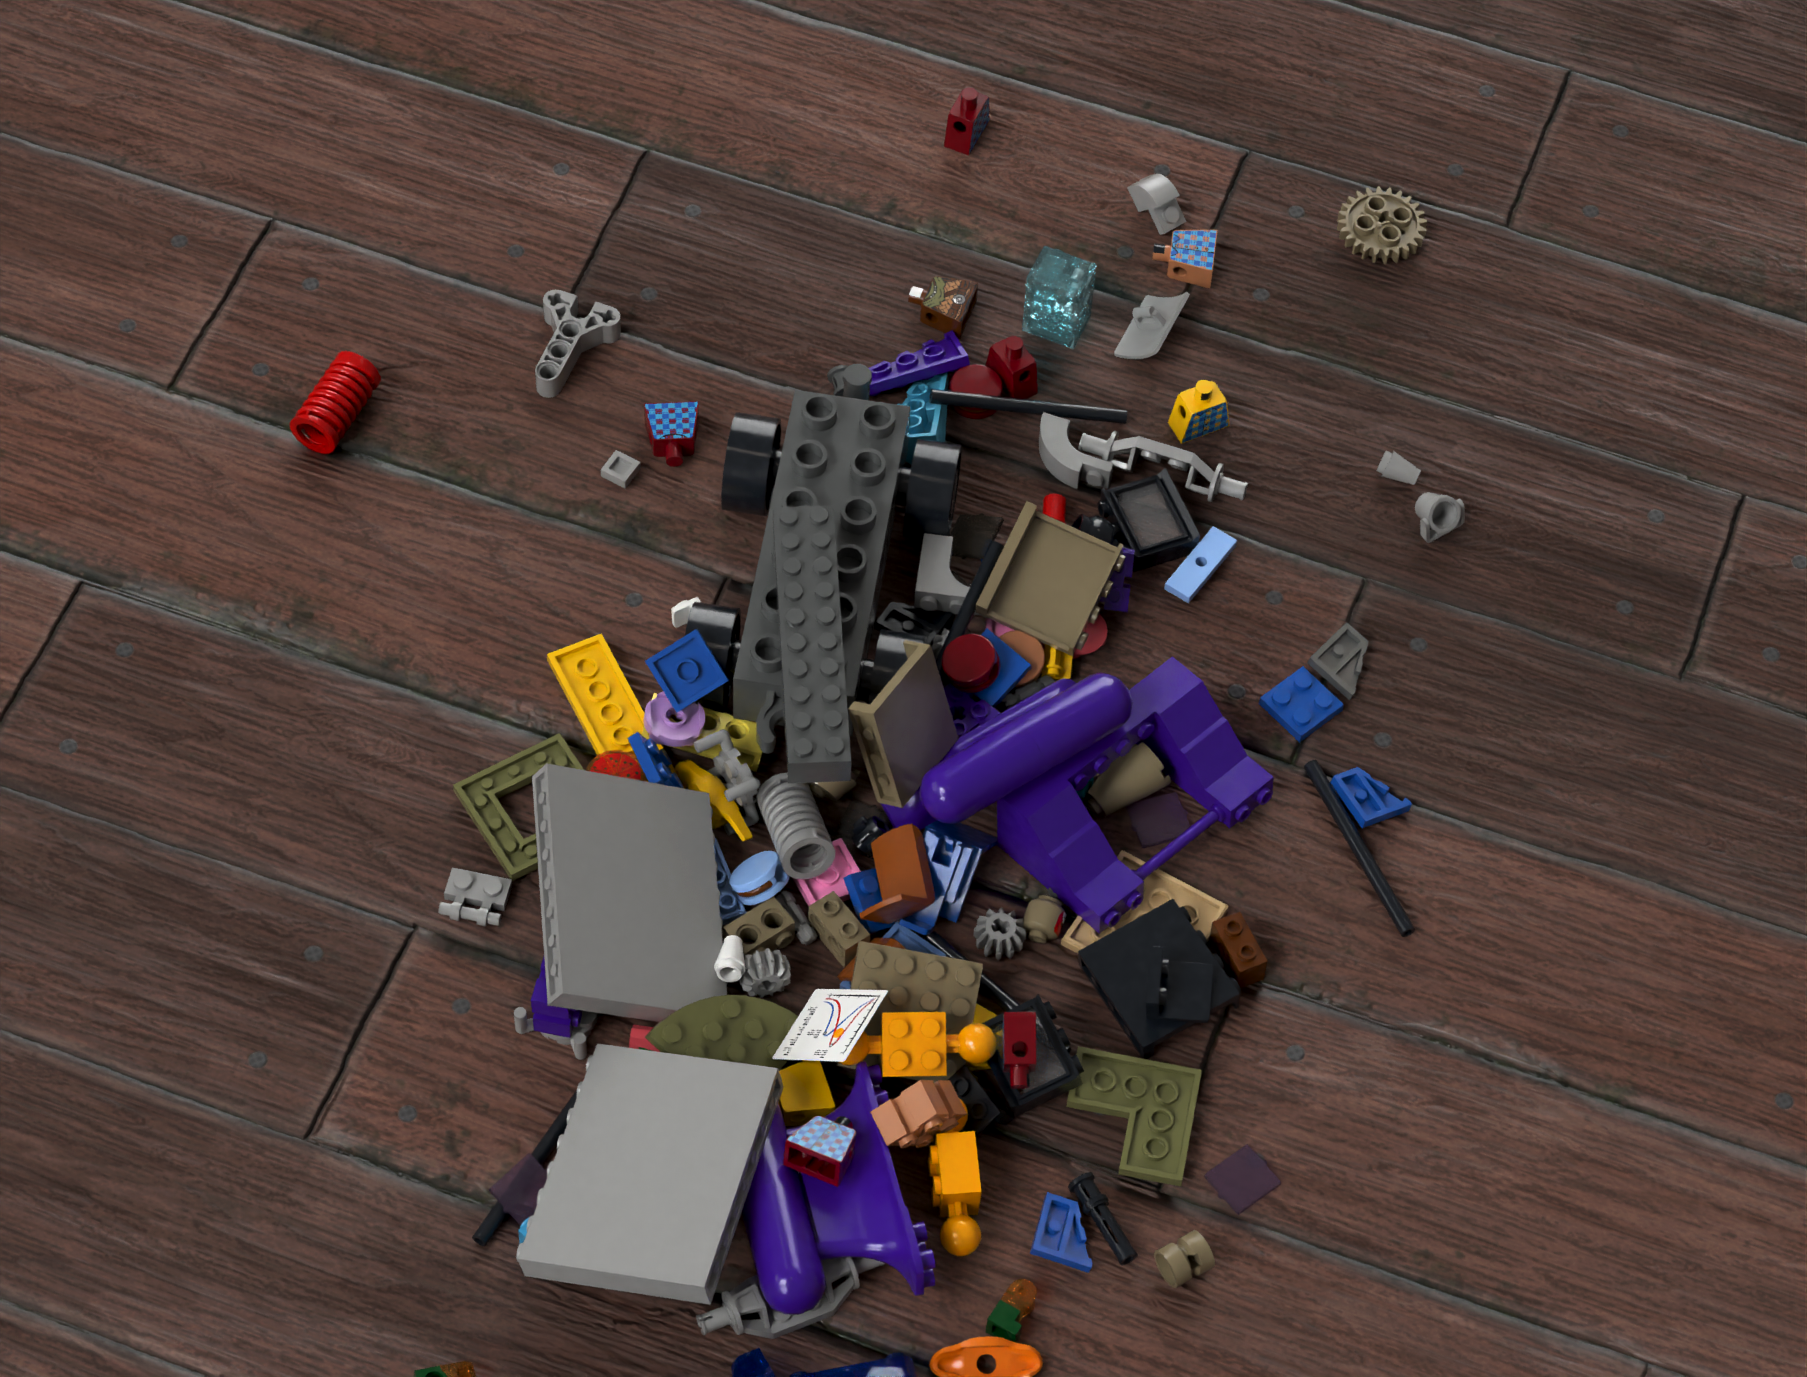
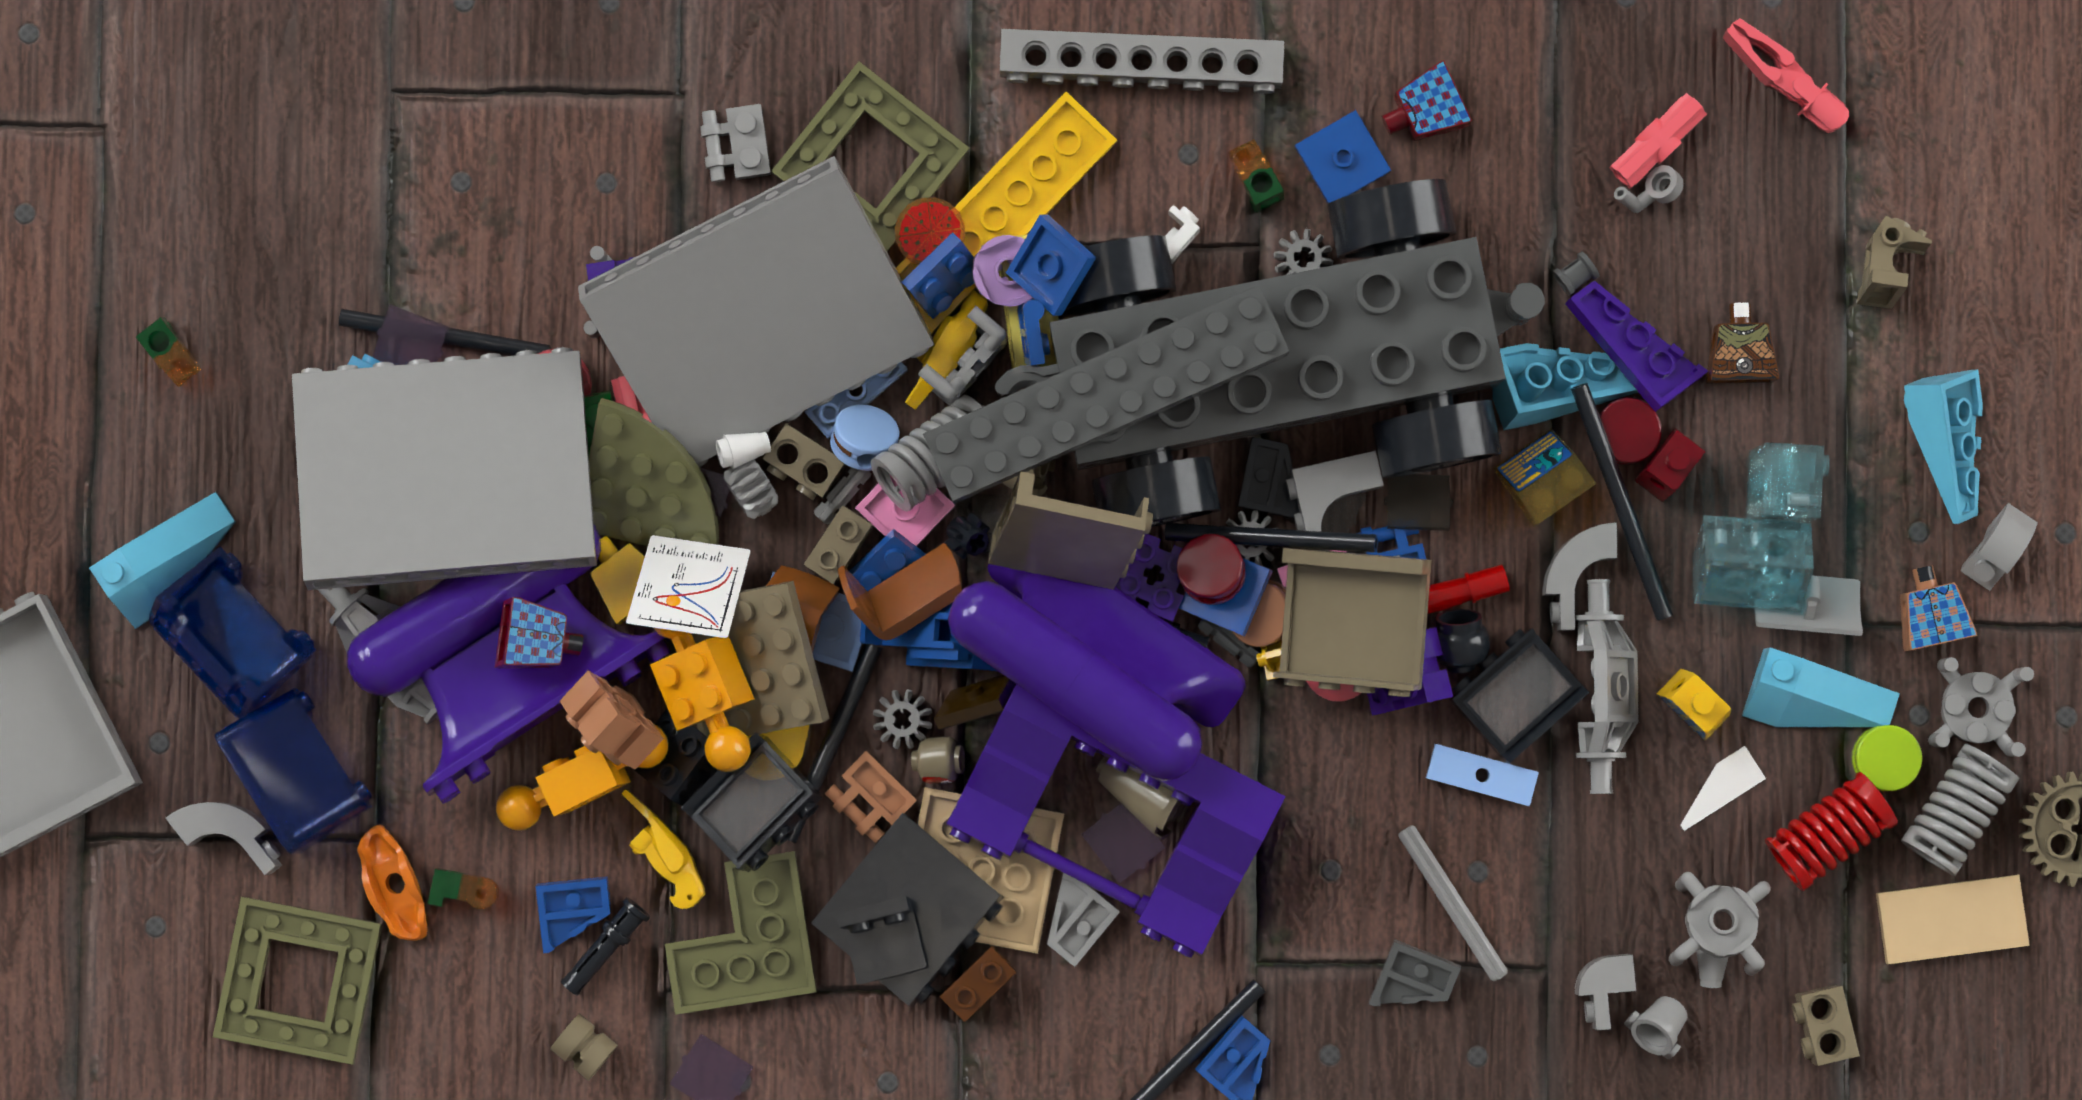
camera: 80 degrees right, 30 degrees up
(567, 557) = (1124, 47): none -> light grey brick
(620, 469) = (1353, 68): light grey plate -> none
(672, 554) = (1256, 175): none -> leg
(685, 500) = (1342, 157): none -> blue plate
(741, 714) = (1034, 343): none -> blue plate
(745, 217) = (1787, 76): none -> coral arm
(746, 545) = (1293, 250): none -> light grey gear
(766, 303) = (1658, 140): none -> coral piece
(793, 312) = (1654, 186): none -> light grey plate
(922, 201) = (1881, 282): none -> dark tan tile
(968, 111) = (2031, 274): dark red torso -> none
(990, 451) = (1544, 477): none -> slope
(1008, 864) = (974, 701): none -> dark brown plate
(1019, 1036) = (737, 795): dark red torso -> none
(1043, 1143) = (667, 856): none -> yellow animal
(1047, 205) = (1944, 423): none -> medium azure wedge
(1052, 970) = (878, 789): none -> nougat plate
(1109, 337) = (1752, 563): none -> clear light blue piece
(1210, 866) = (1078, 919): none -> light grey wing
(1219, 345) = (1807, 694): none -> medium azure wedge
(1265, 420) = (1726, 782): none -> white sticker
(1270, 243) = (1998, 701): none -> light grey plate
(1286, 317) = (1887, 757): none -> lime head
(1292, 617) = (1453, 903): none -> light grey axle
(1301, 704) = (1338, 949): blue plate -> none
(1328, 360) = (1792, 840): none -> red piece
(1341, 281) = (1949, 799): none -> light grey piece
(1372, 455) = (1704, 933): none -> light grey plate
(1390, 544) = (1599, 978): none -> light grey brick
(1420, 320) = (1952, 919): none -> tan tile
(1473, 414) = (1835, 1021): none -> dark tan brick

